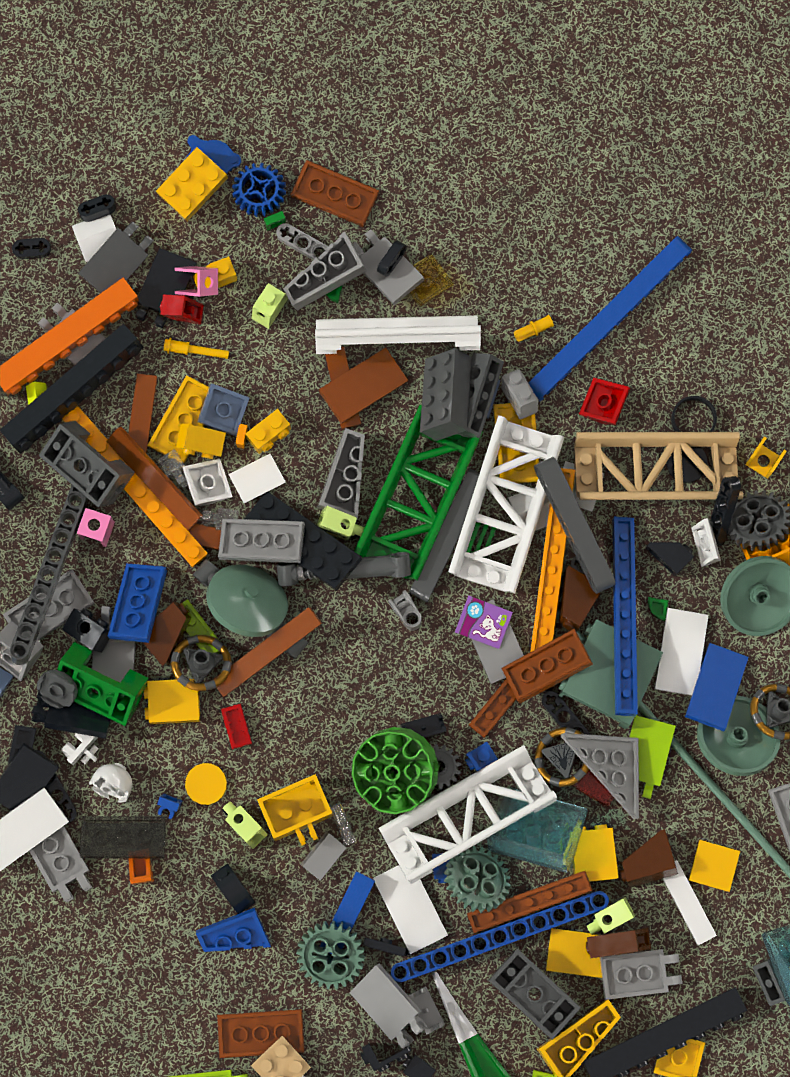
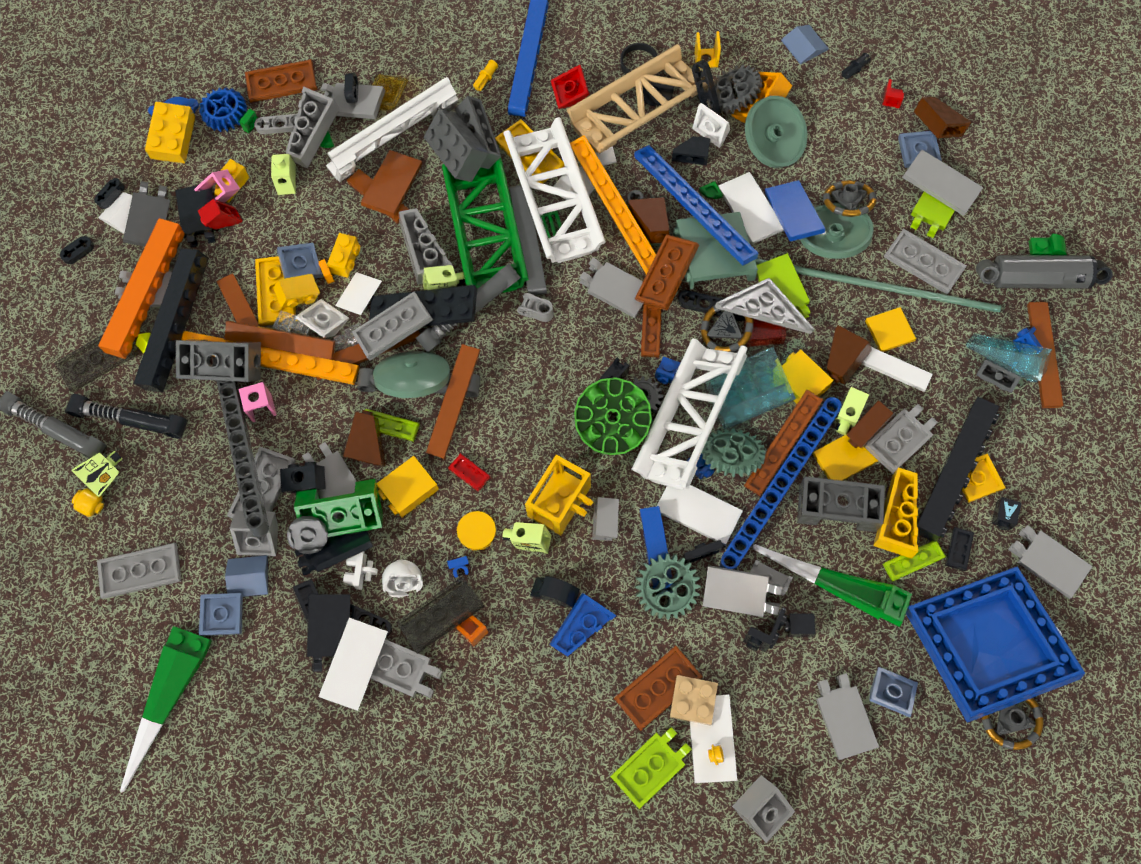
camera: 30 degrees left, 10 degrees down
(137, 603) = (328, 433): blue tile -> none
(184, 348) = (241, 242): yellow pin -> none
(201, 662) = (408, 442): dark grey piece -> none
(342, 824) = (605, 487): clear axle -> none
(483, 622) = (597, 277): sticker -> none
(519, 394) = (507, 116): light grey brick -> none
(574, 525) = (613, 166): dark grey beam -> none

